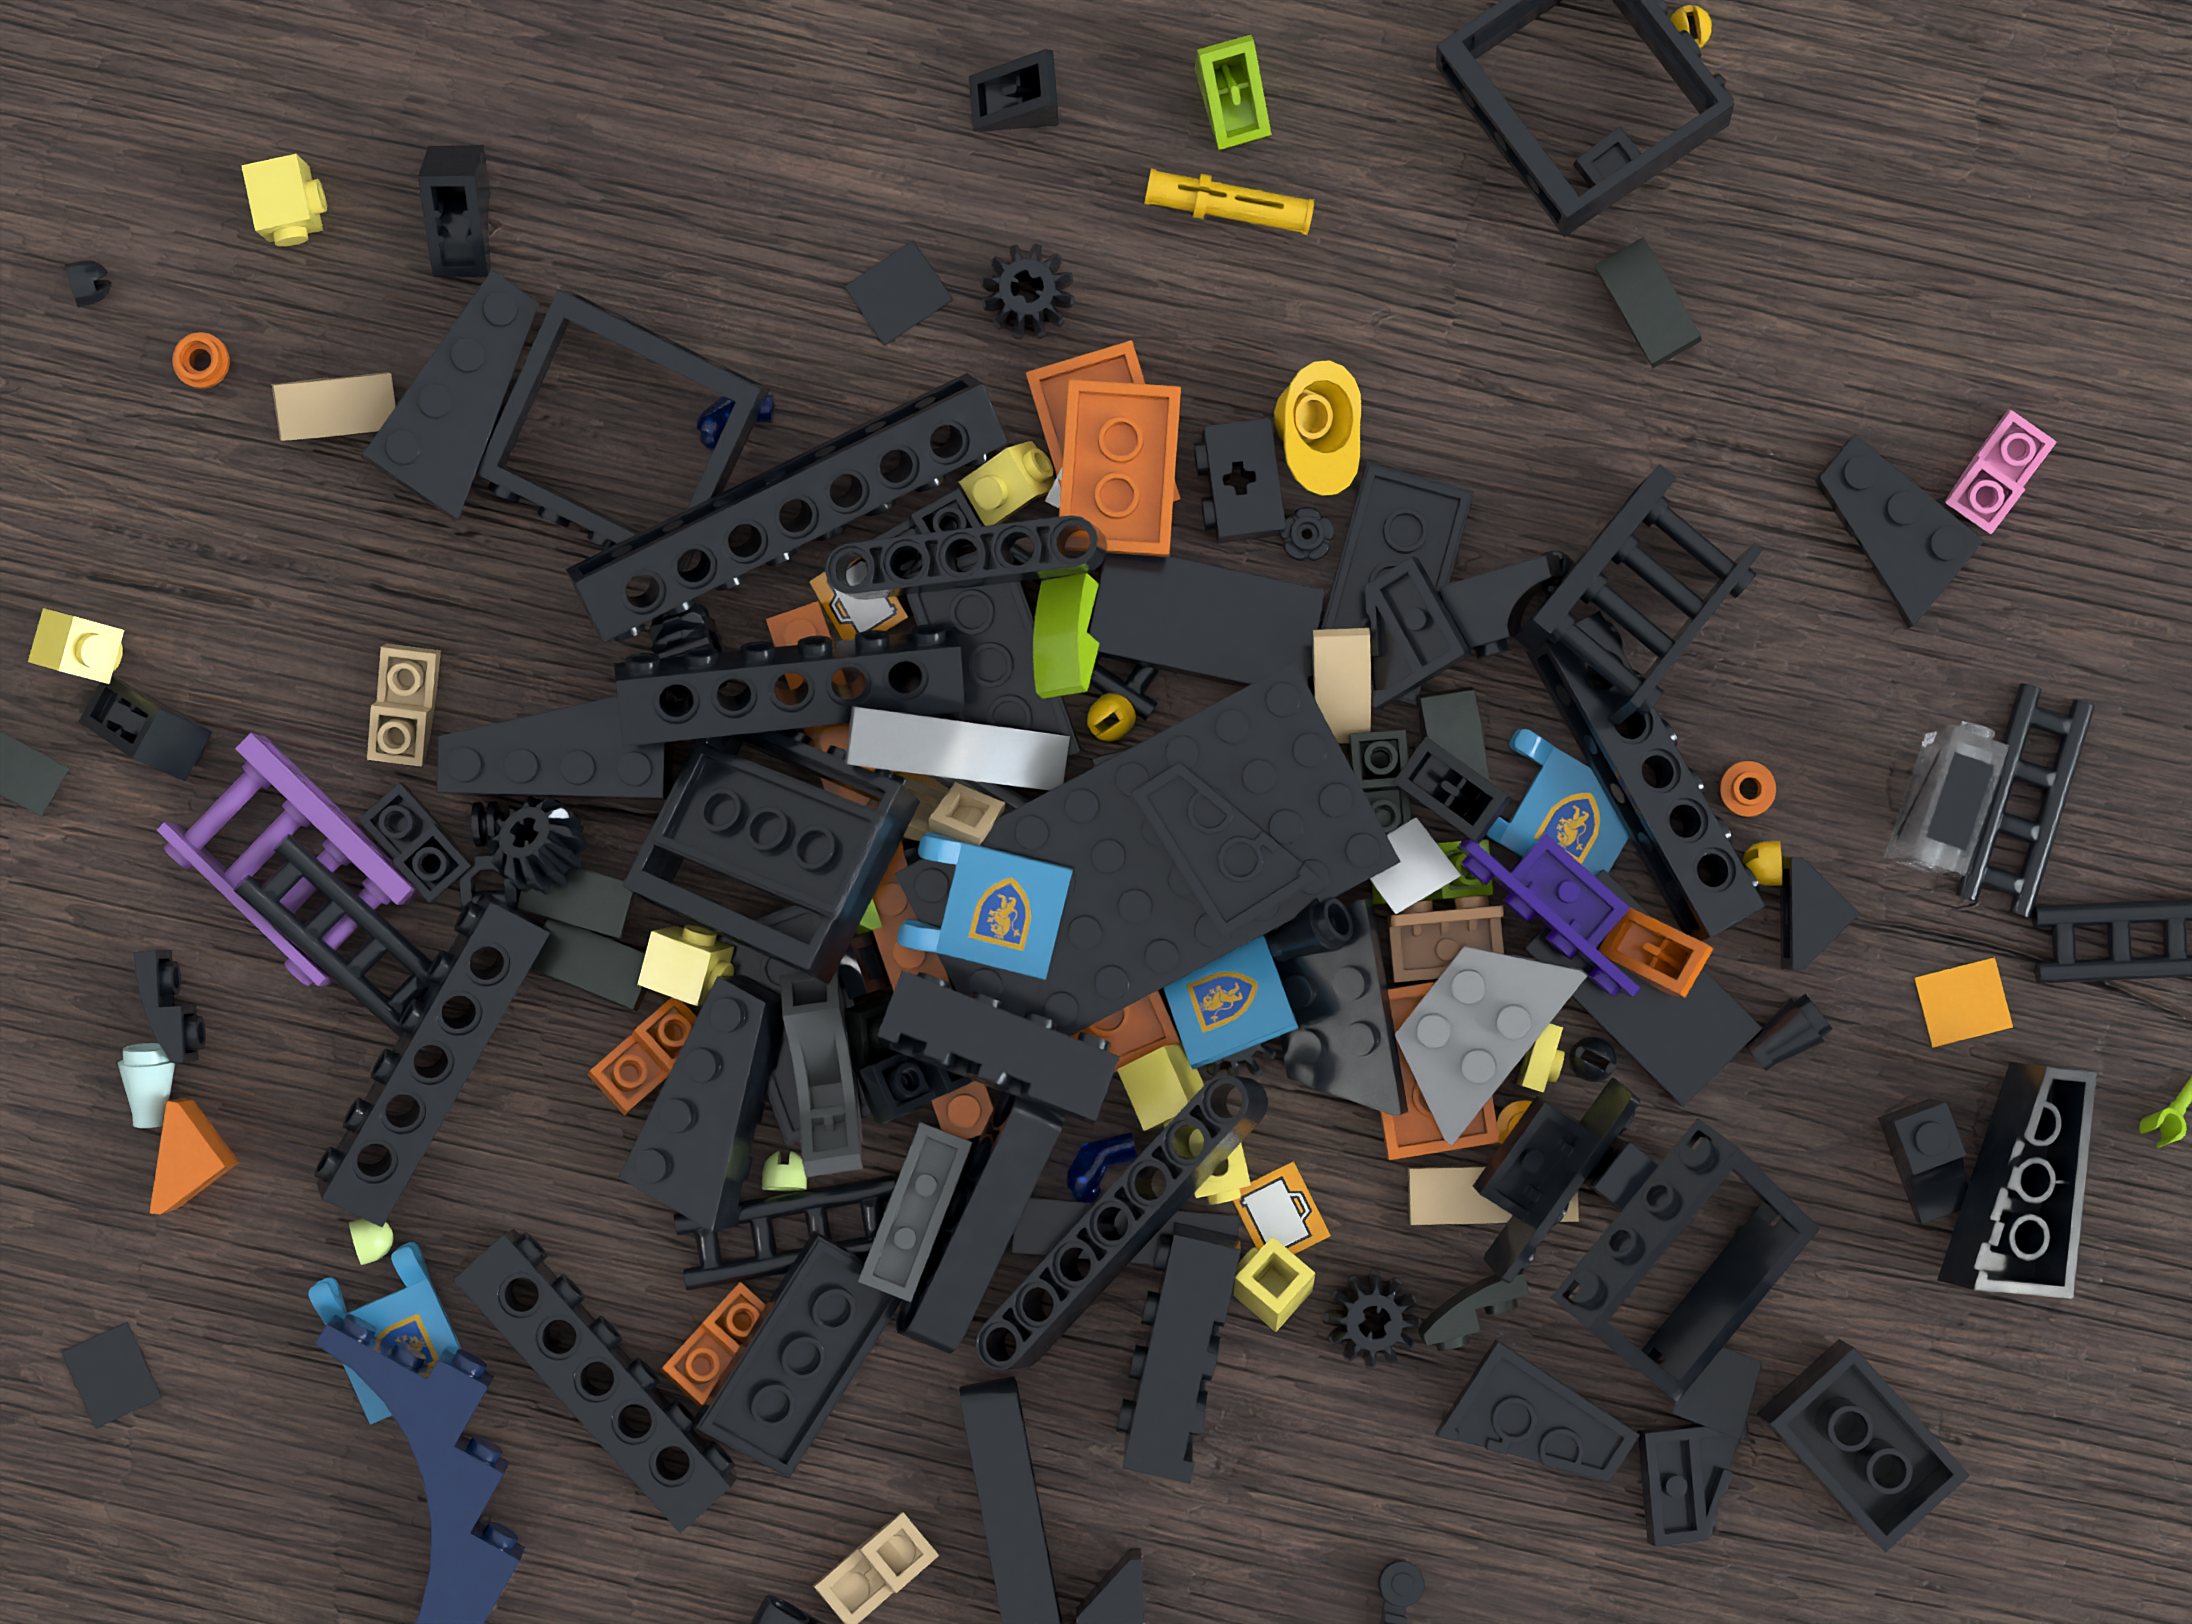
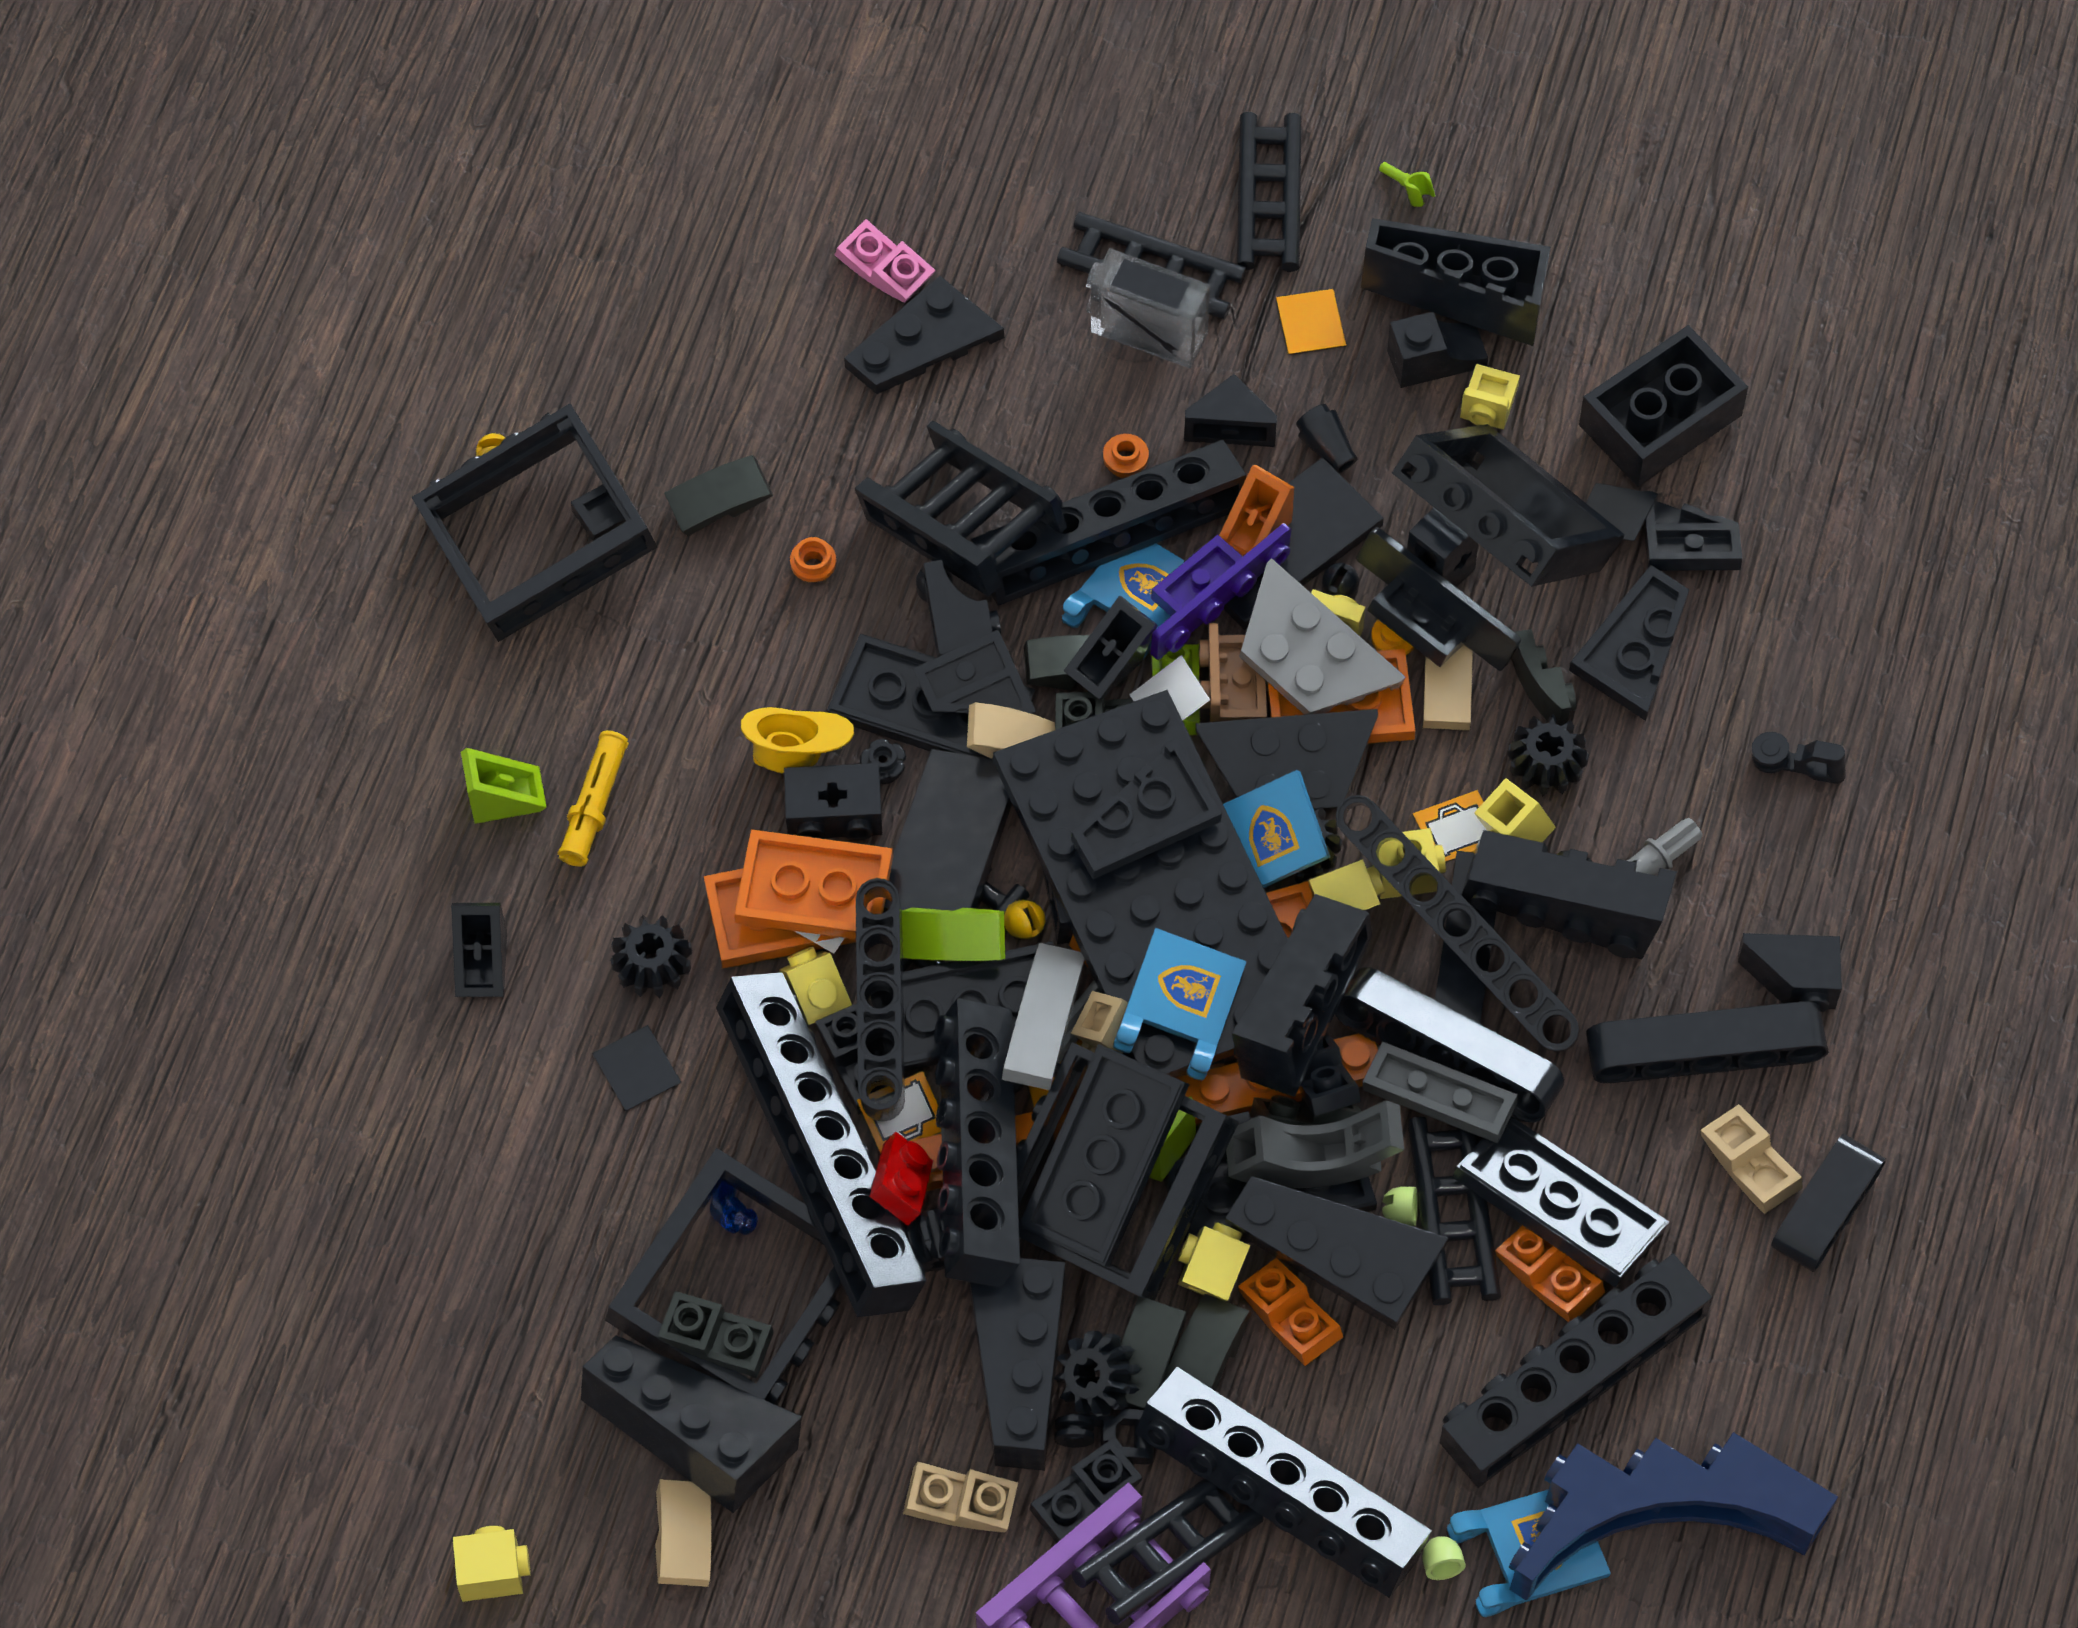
camera: 85 degrees left, 25 degrees down
(456, 210) = (518, 1411): black arch -> none
(538, 412) = (715, 1335): none -> pearl dark grey slope
(742, 603) = (901, 1178): none -> red plate
(1093, 1161) = (1404, 960): clear blue arm -> none
(1254, 1454) = (1666, 848): none -> light grey axle
(1314, 930) = (1220, 760): black cone -> none
(1582, 413) = (813, 549): none -> orange plate
(1765, 862) = (1186, 440): yellow hinge -> none
(1863, 1228) = (1489, 396): none -> light yellow bracket

